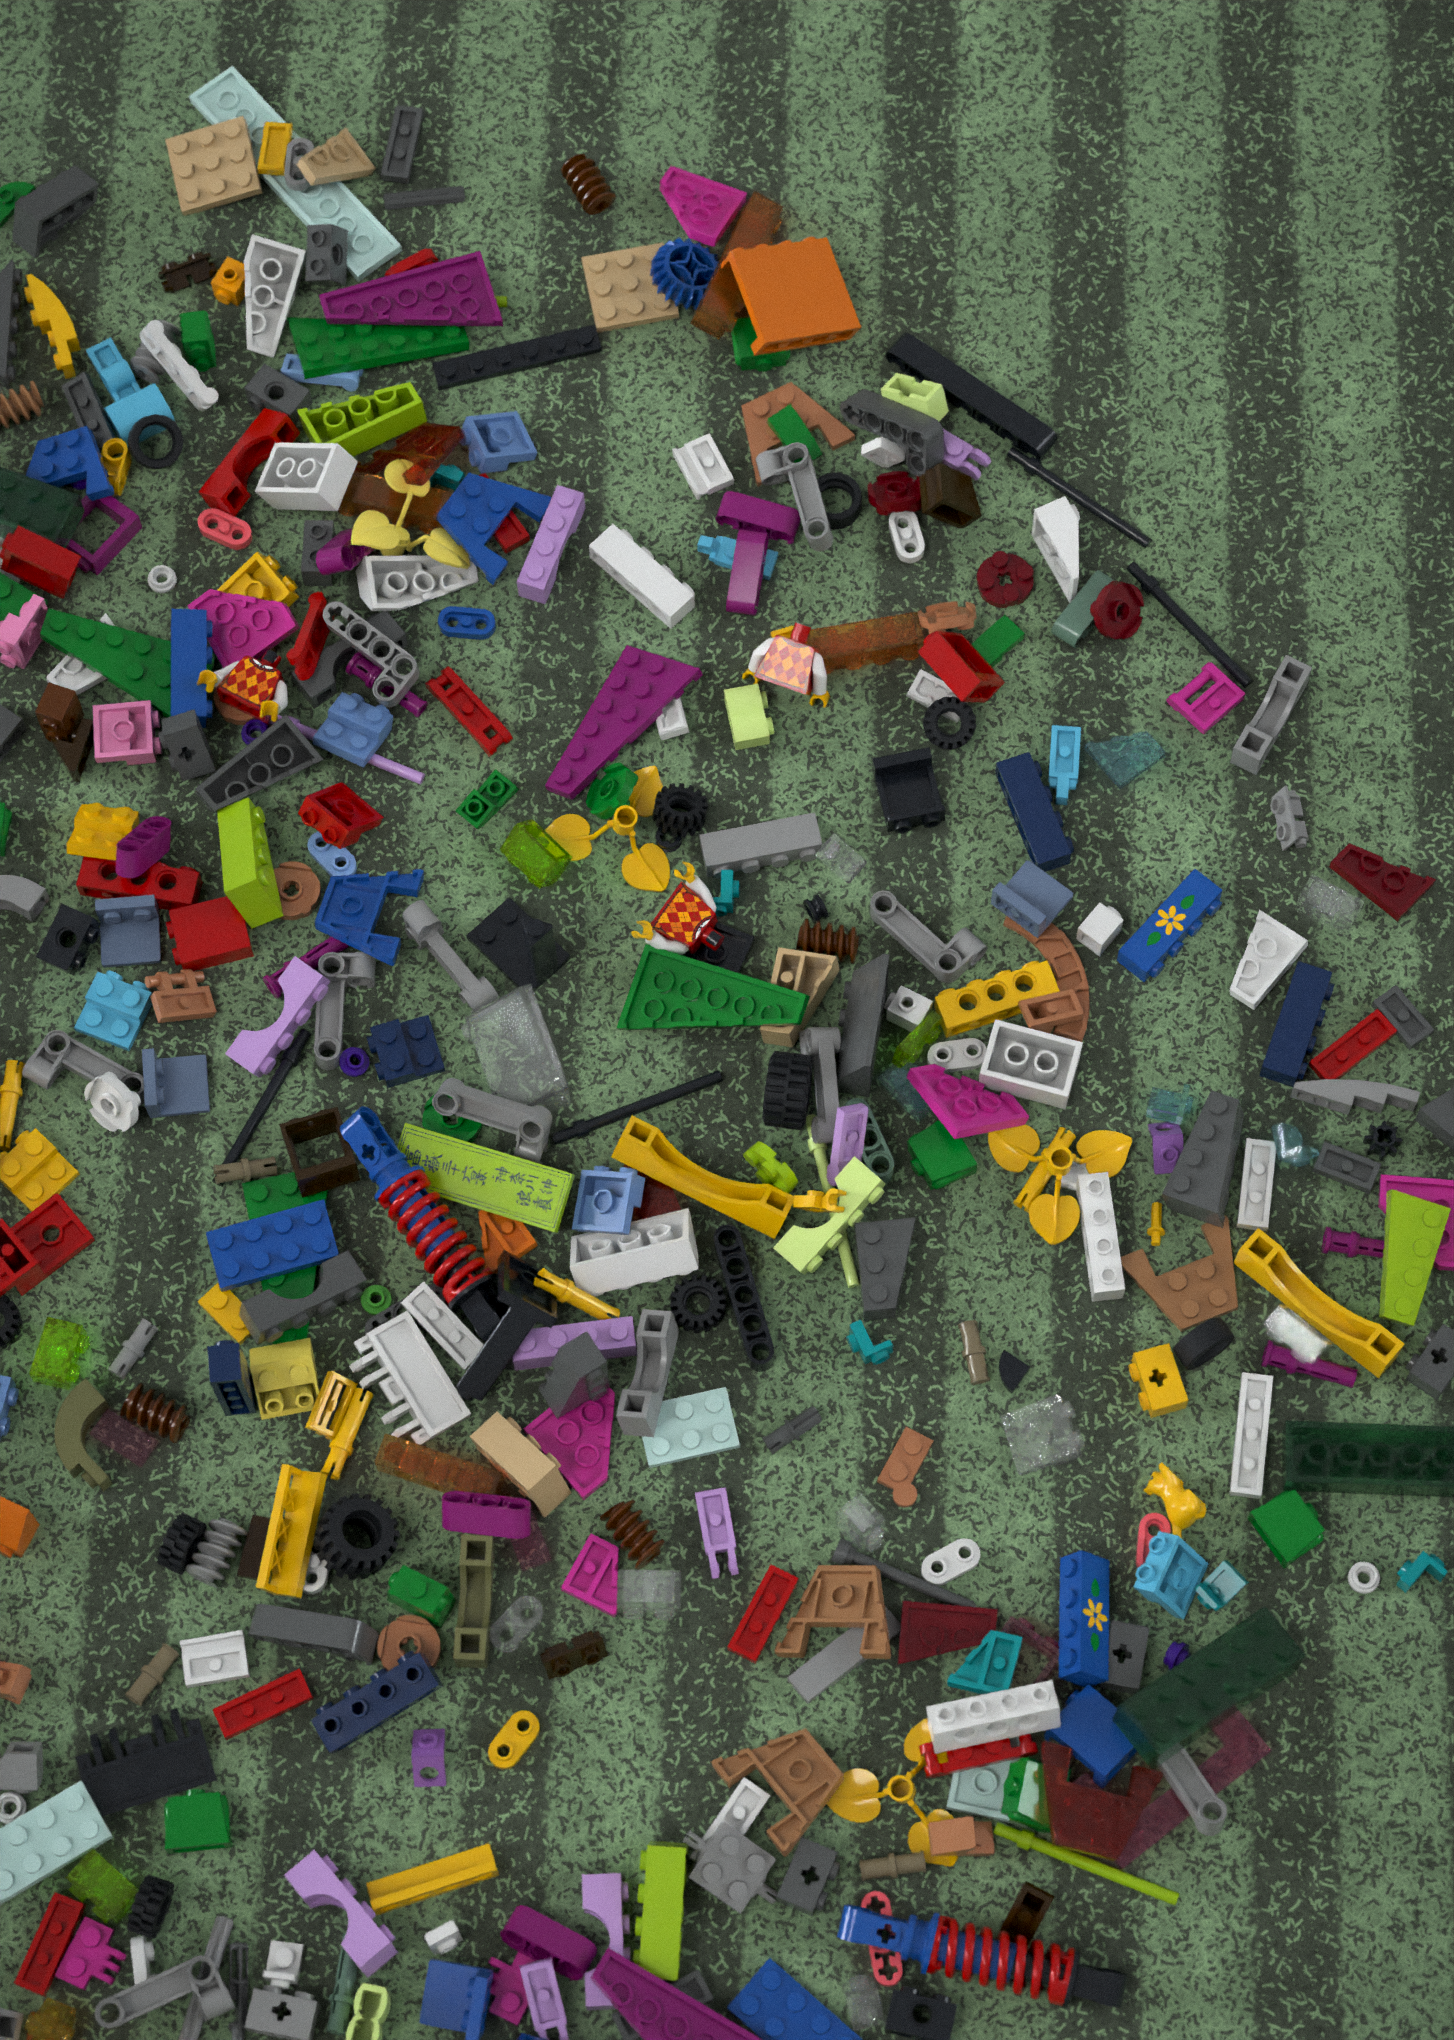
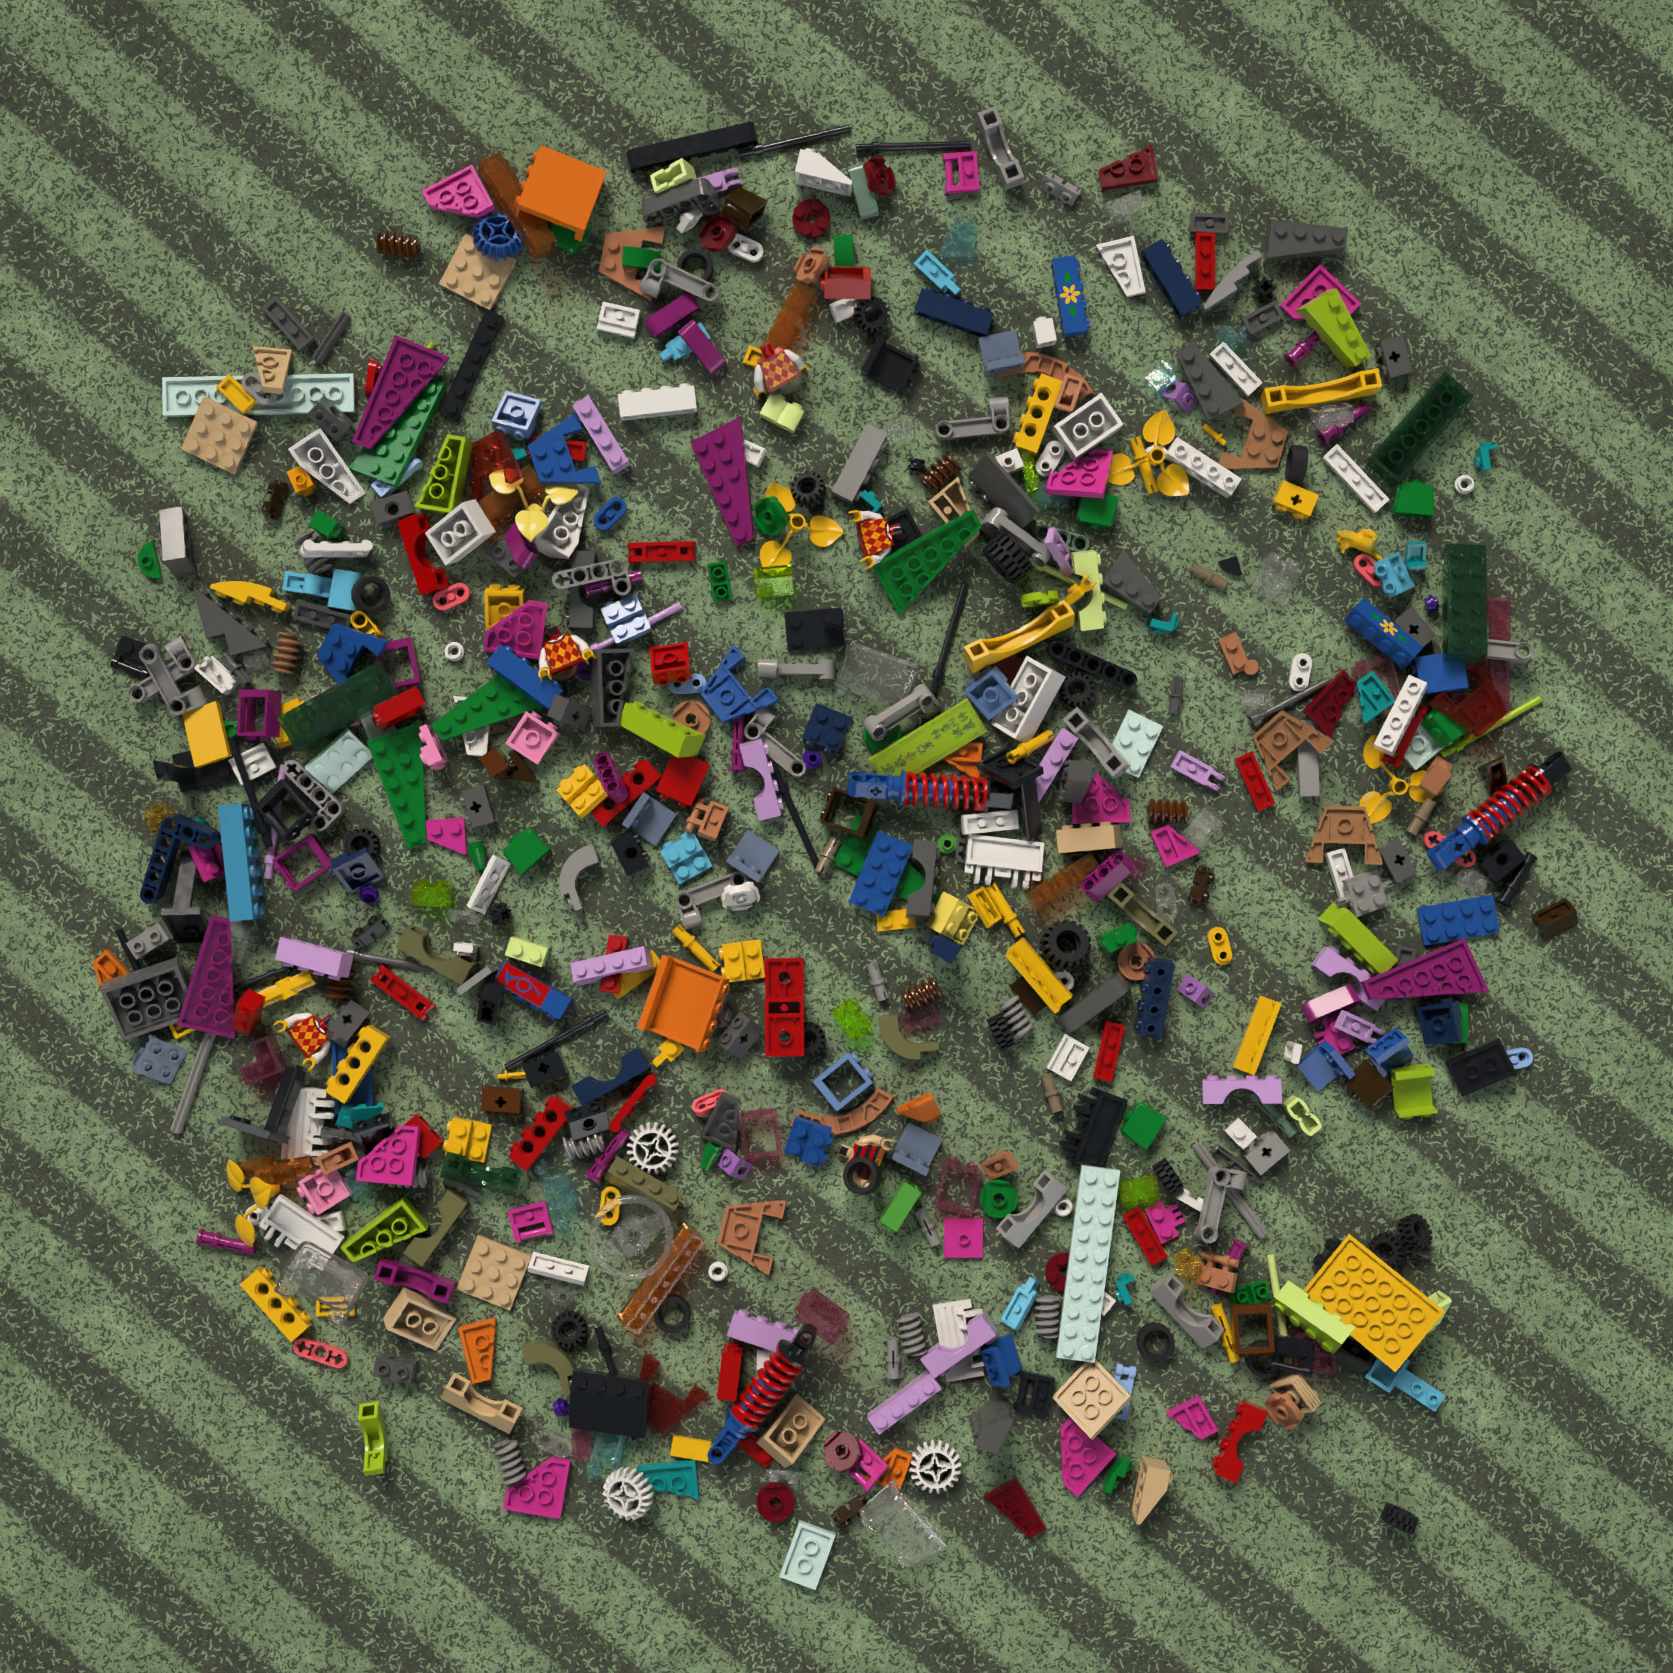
camera: 55 degrees left, 20 degrees up
(310, 639) = (562, 606): red plate -> none

